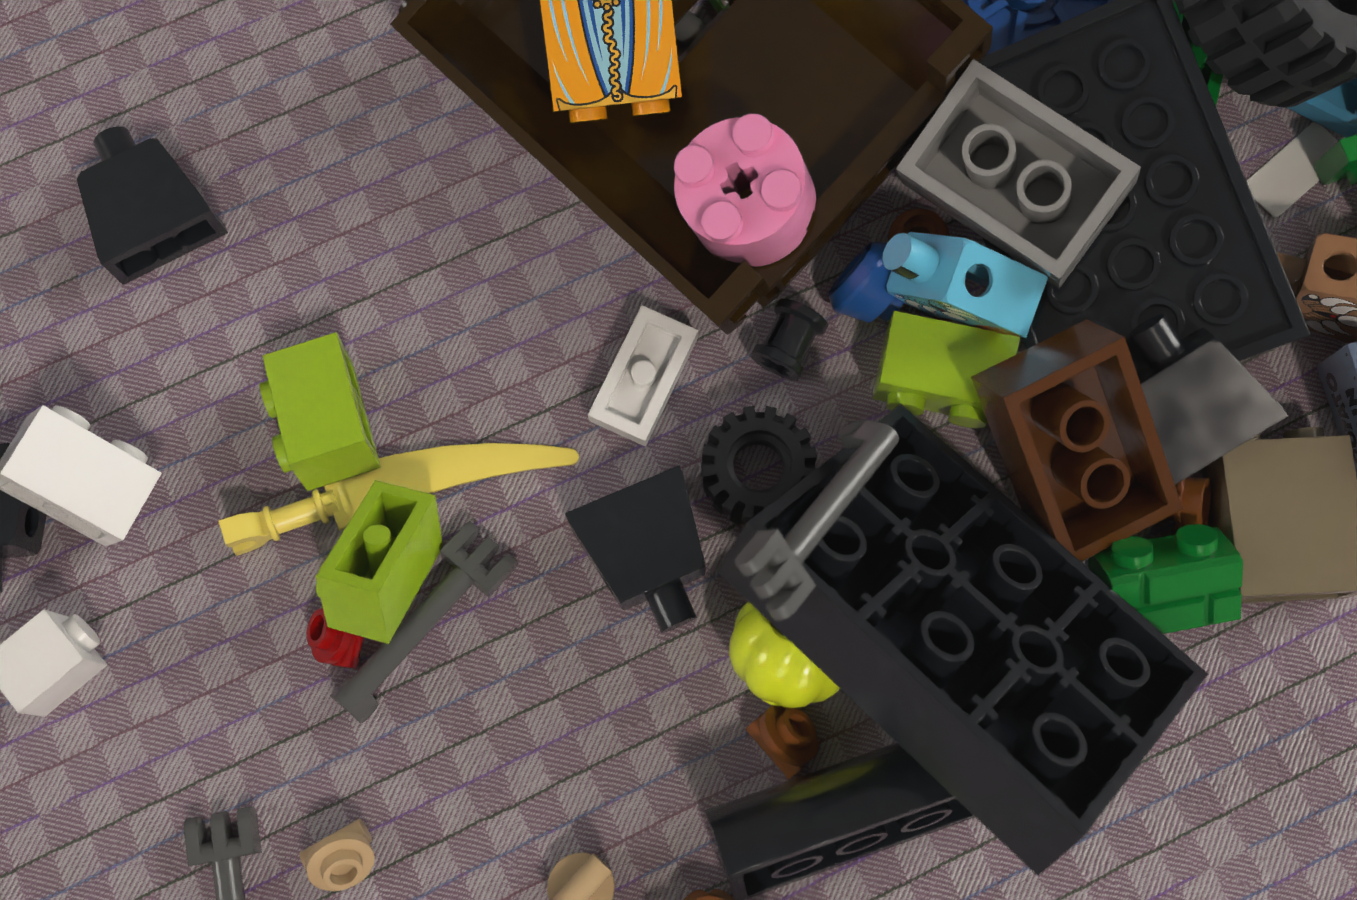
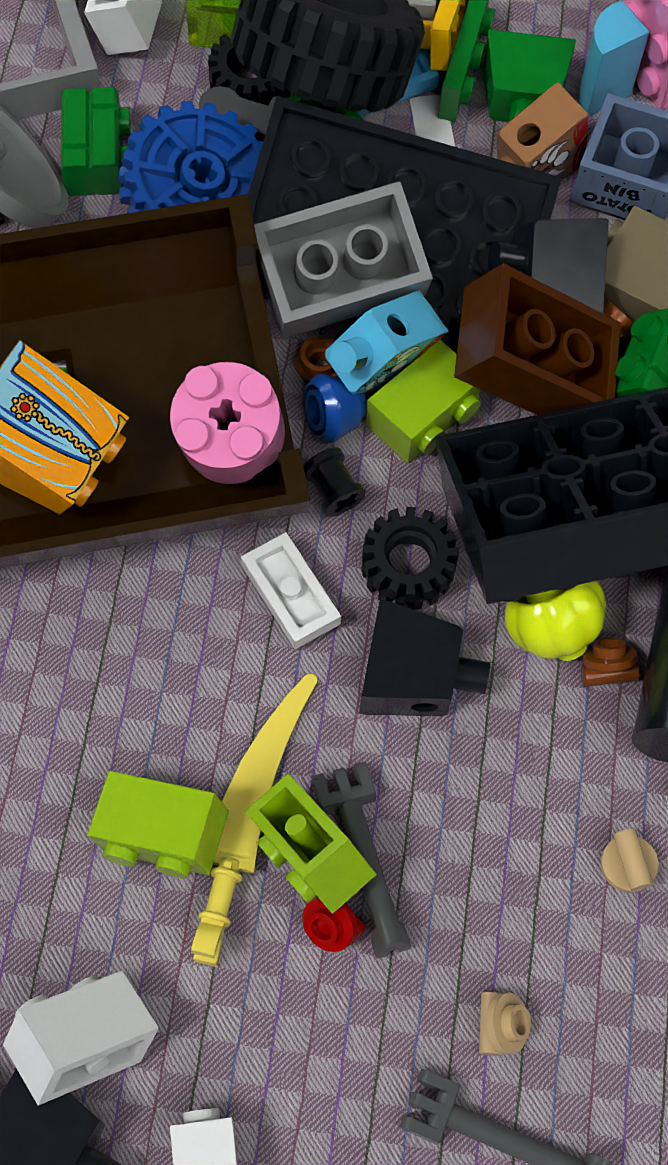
camera: 60 degrees left, 10 degrees down
(780, 558) = (518, 537): dark grey hinge -> none

